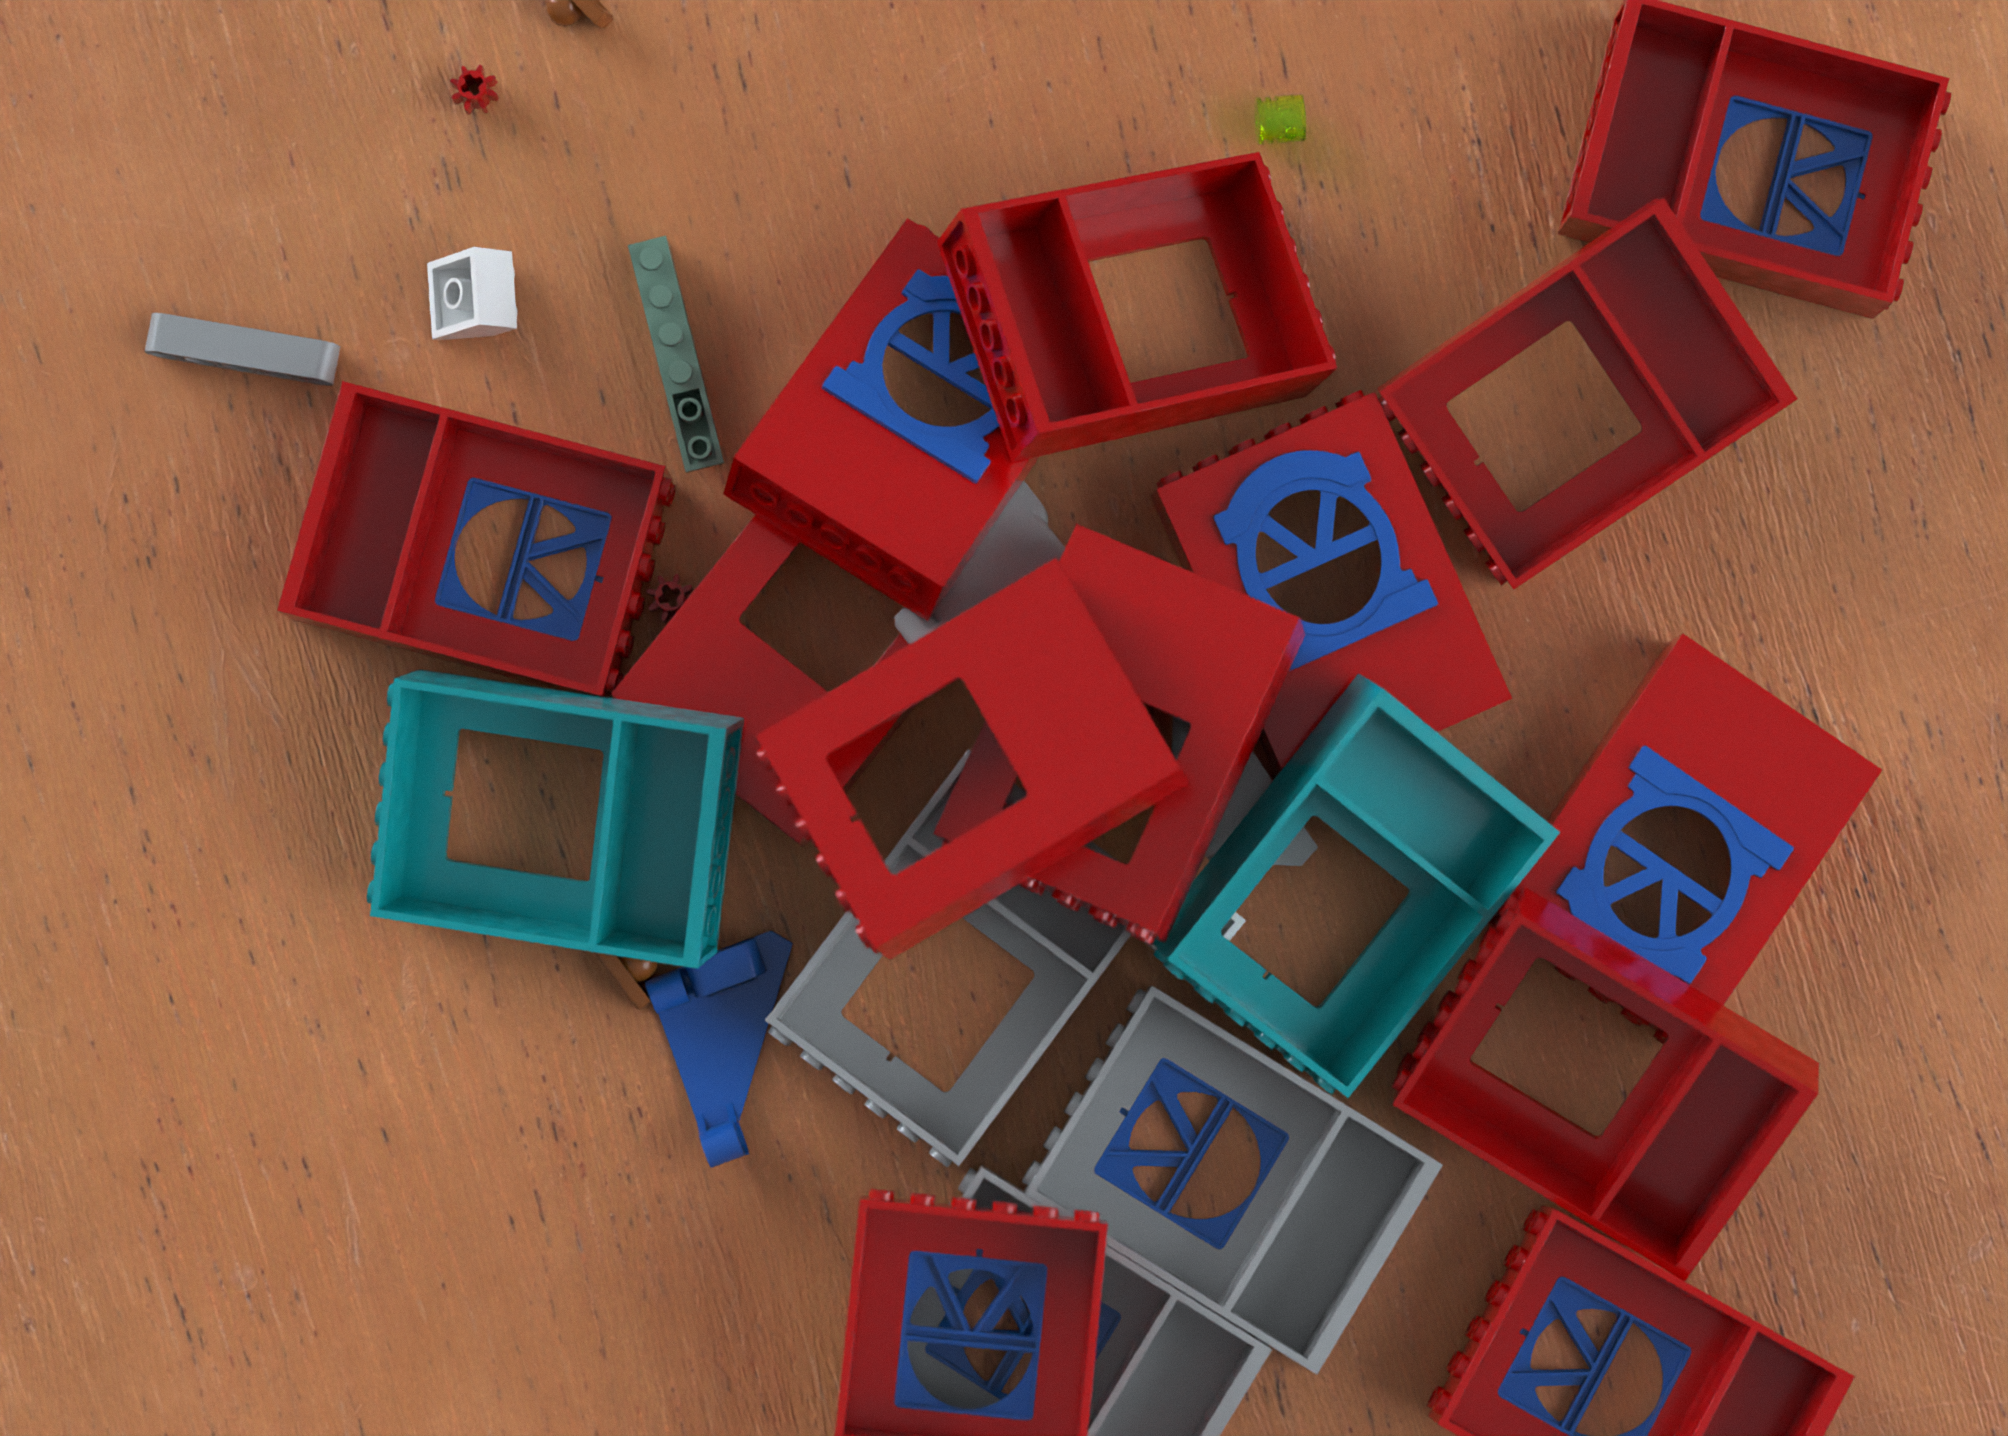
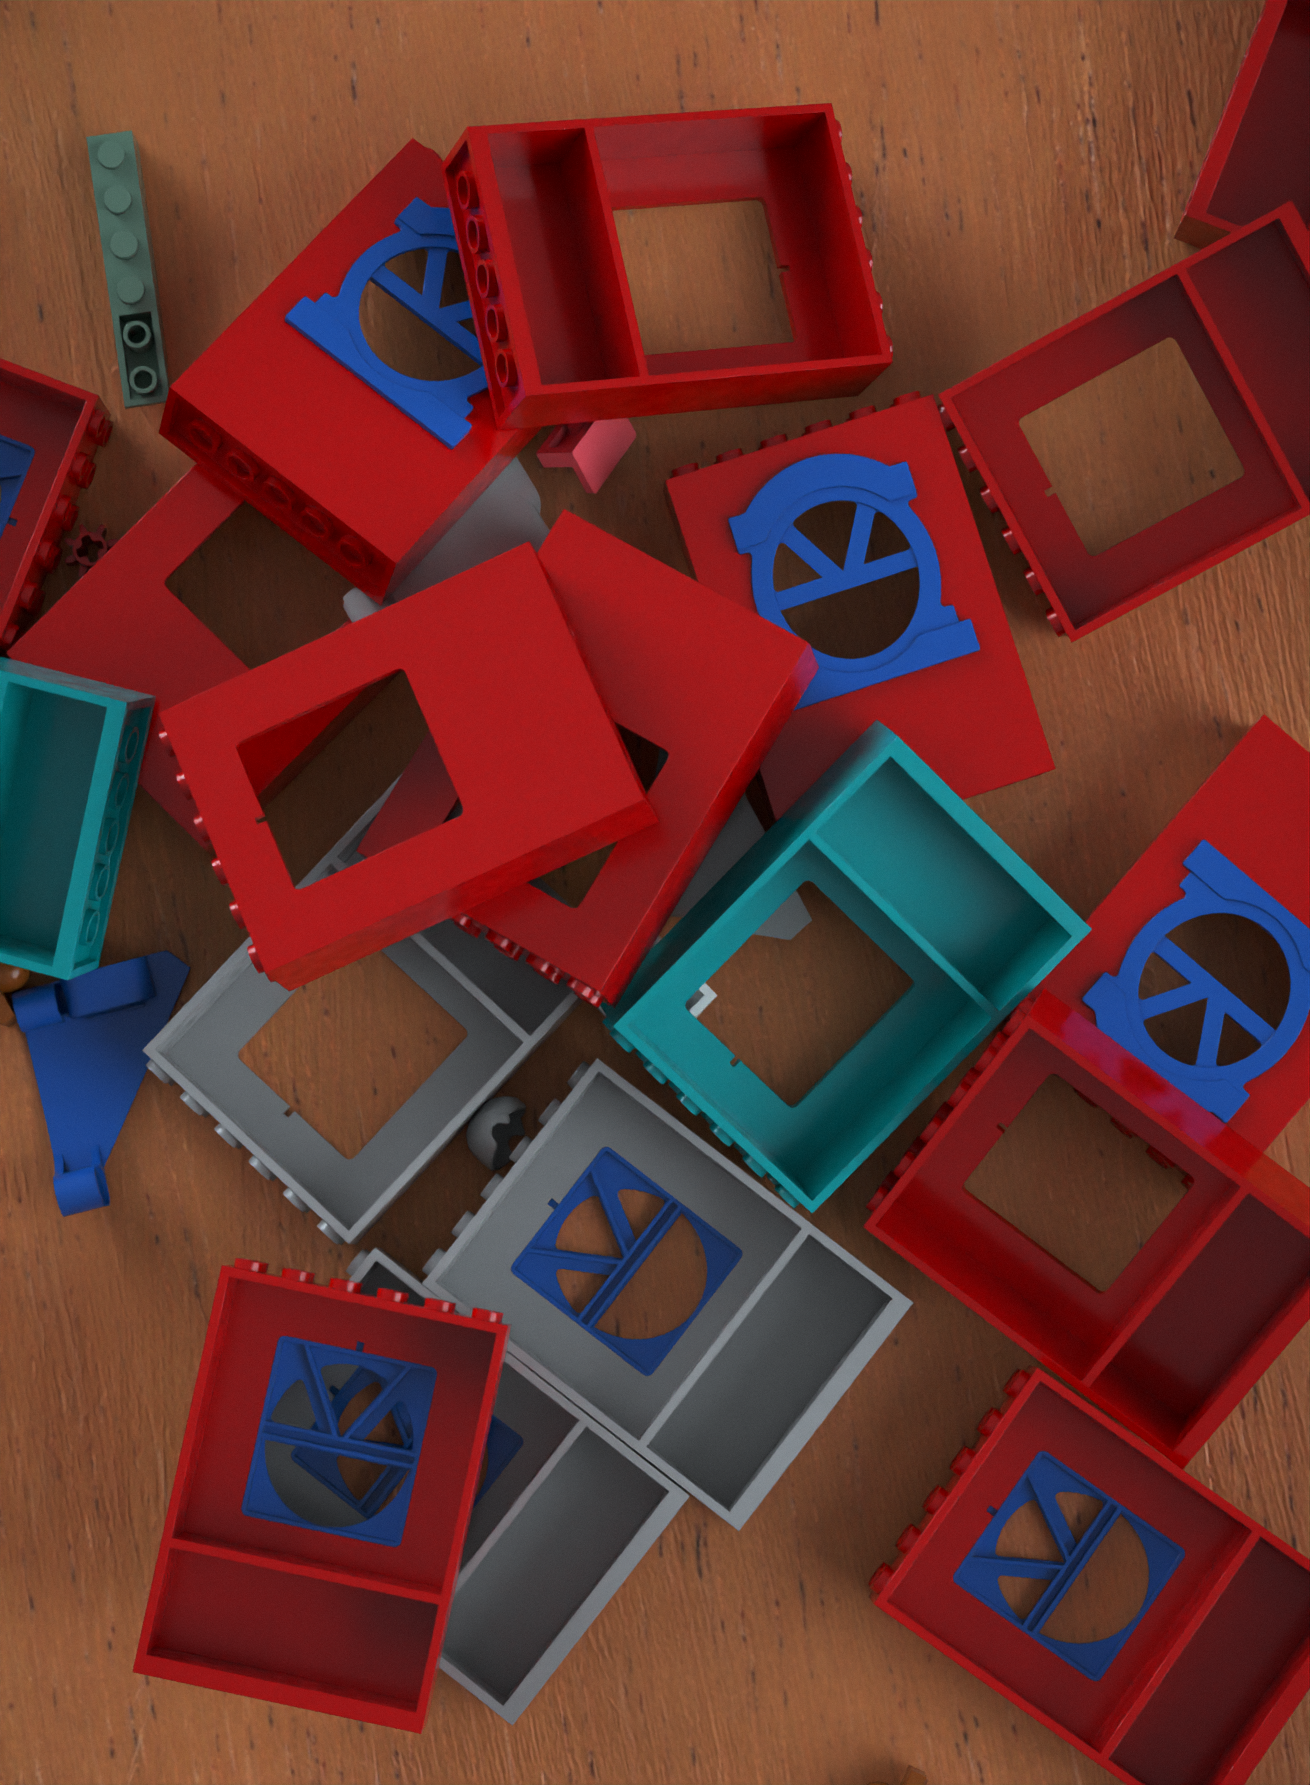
camera: 10 degrees right, 0 degrees up
(1065, 1053) = (492, 1129): none -> light grey hair
(1083, 467) = (589, 448): none -> coral panel
(1280, 119) = (863, 70): clear neon green piece -> none

